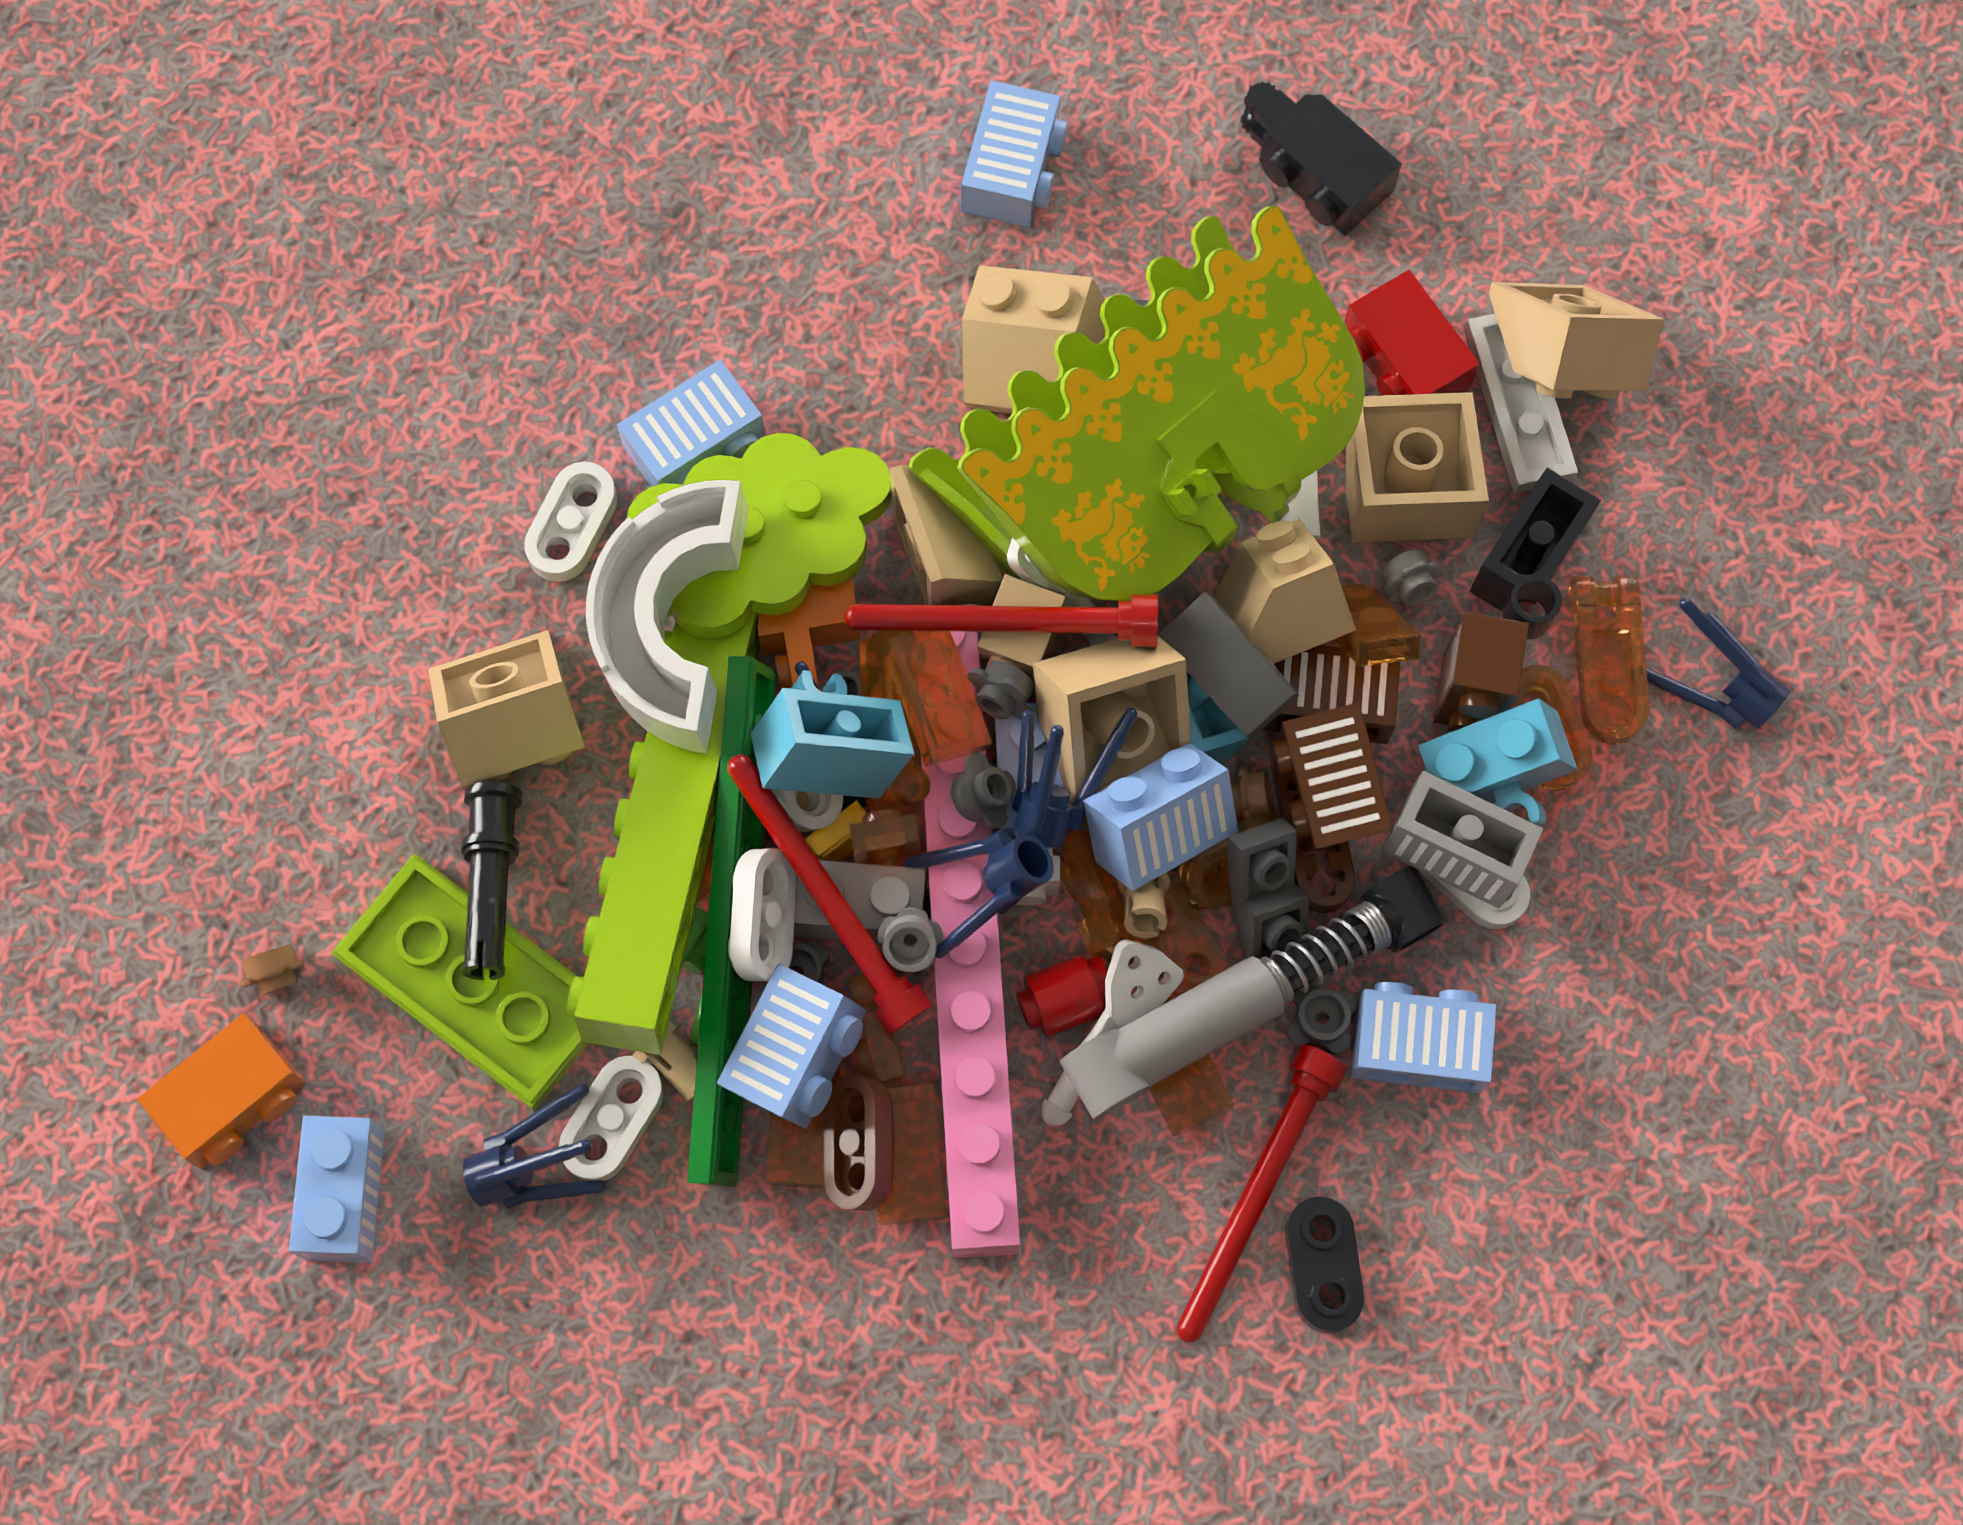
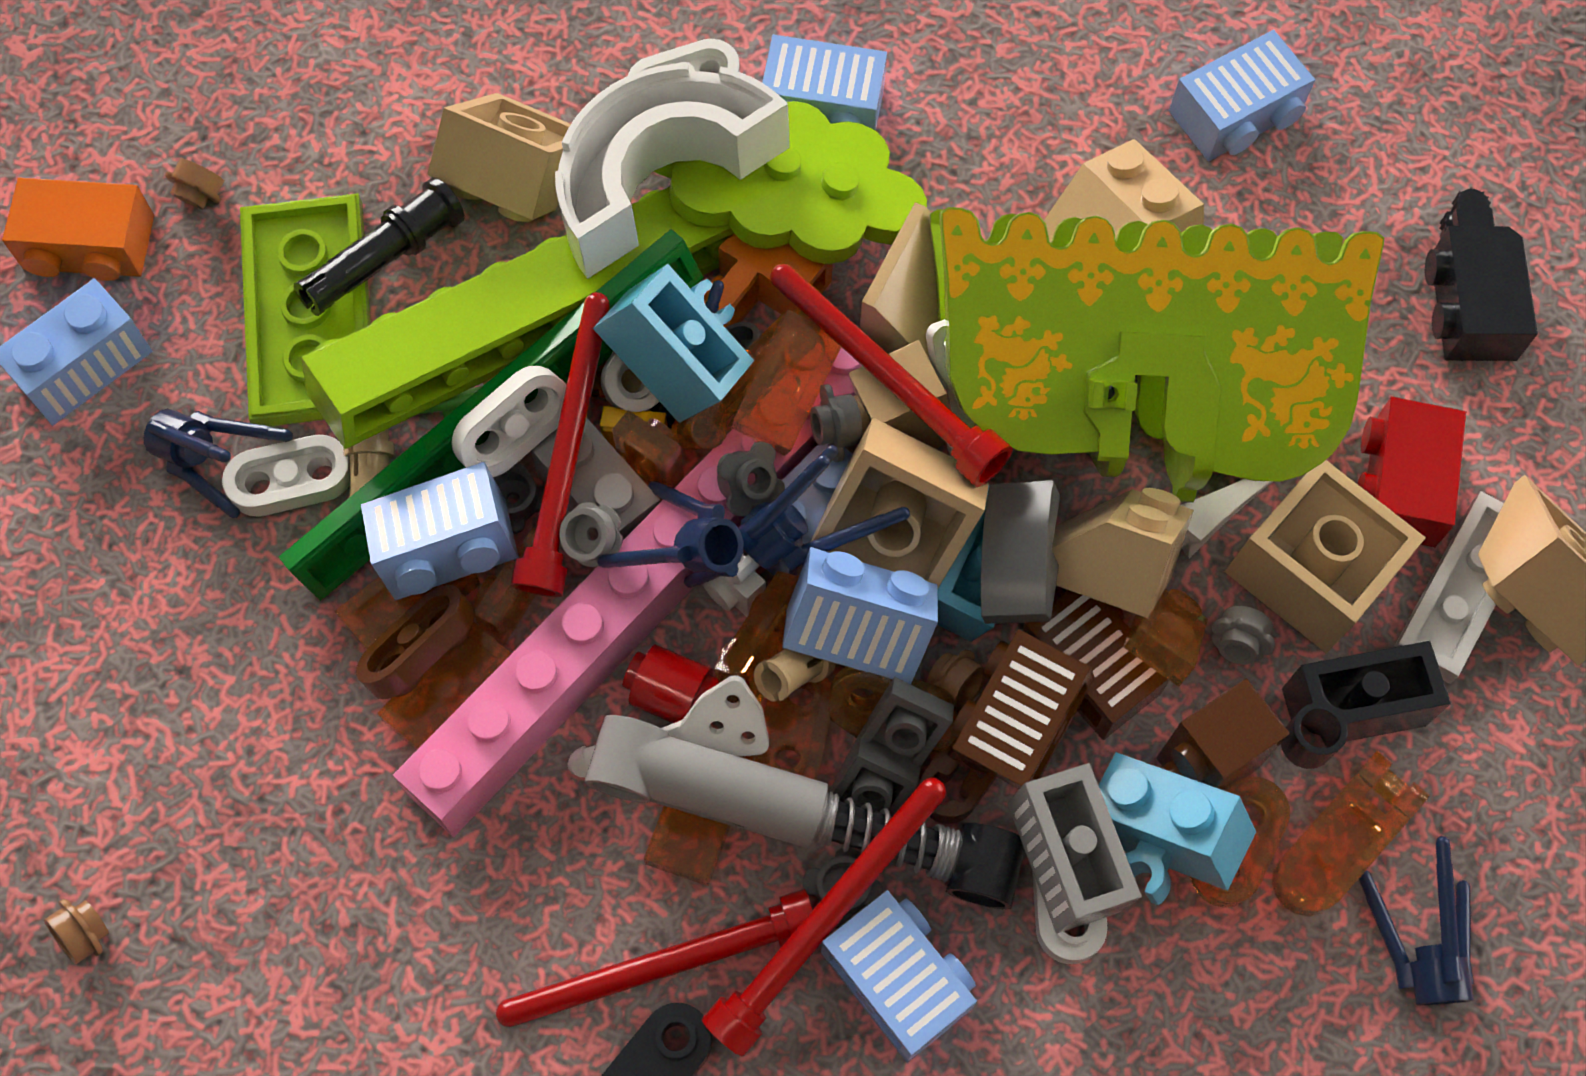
camera: 45 degrees right, 5 degrees down
(1348, 1171) = (738, 1018): none -> red piece

